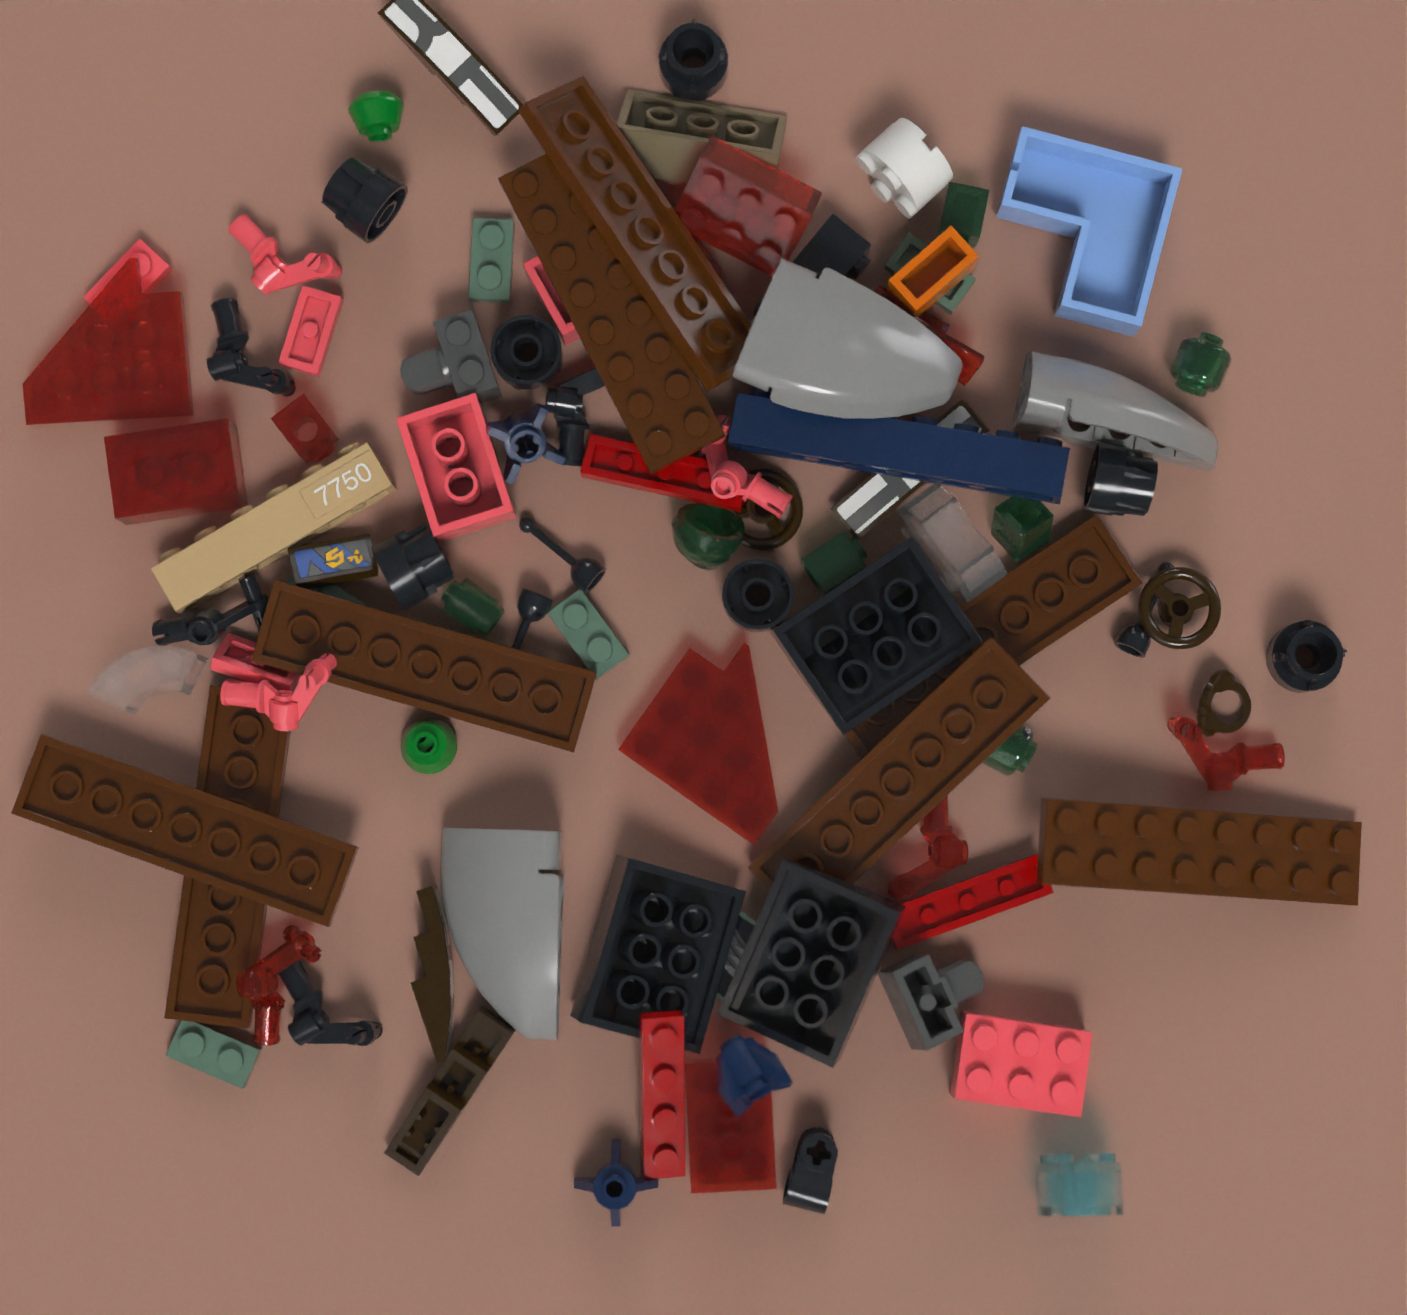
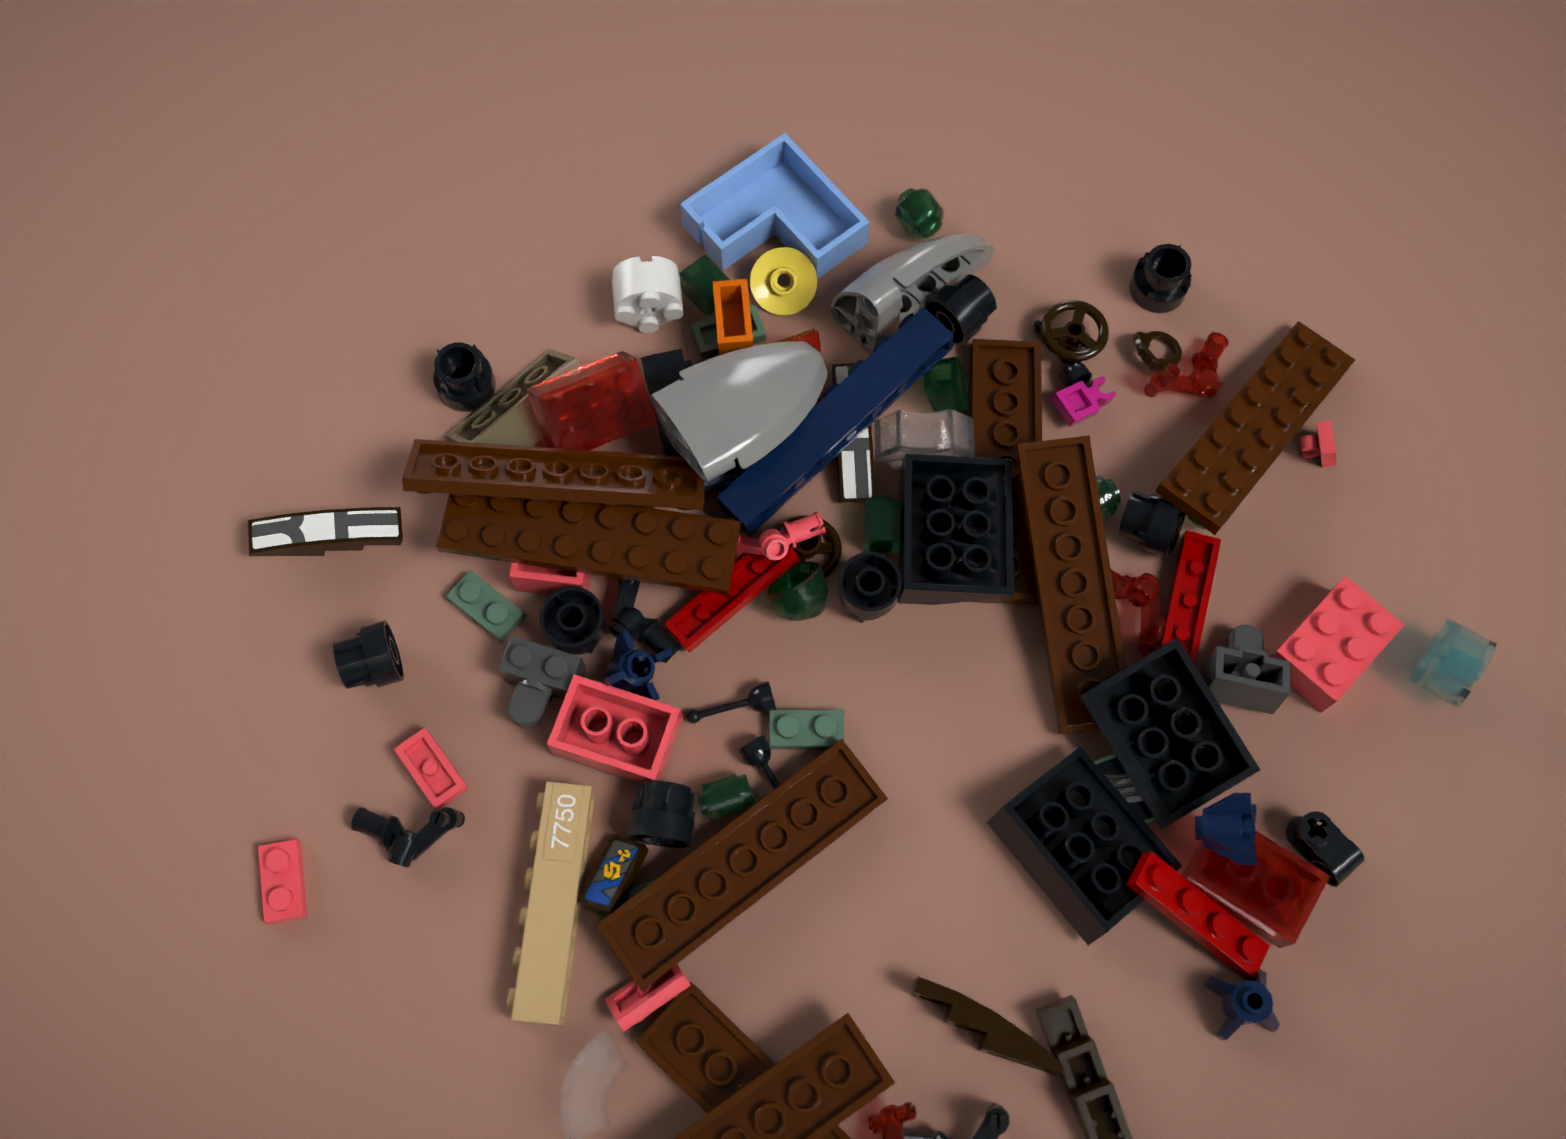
camera: 55 degrees left, 15 degrees down
(116, 360) = (331, 932): clear red wing -> none
(175, 471) = (452, 947): clear red brick -> none
(210, 623) = (589, 1002): black pin -> none
(271, 270) = (363, 765): coral pin -> none
(283, 706) = (697, 991): coral pin -> none
(297, 414) = (485, 816): clear red brick -> none
(376, 114) = (317, 608): green cone -> none
(437, 735) = (806, 918): green cone -> none
(508, 920) = (984, 938): light grey panel -> none
(710, 742) = (949, 698): clear red wing -> none
(1006, 291) = (778, 298): none -> light yellow dish
(1016, 815) = (1152, 523): none -> black piece
(1105, 664) = (1079, 402): none -> dark pink plate
(1231, 930) = (1320, 444): none -> coral tile

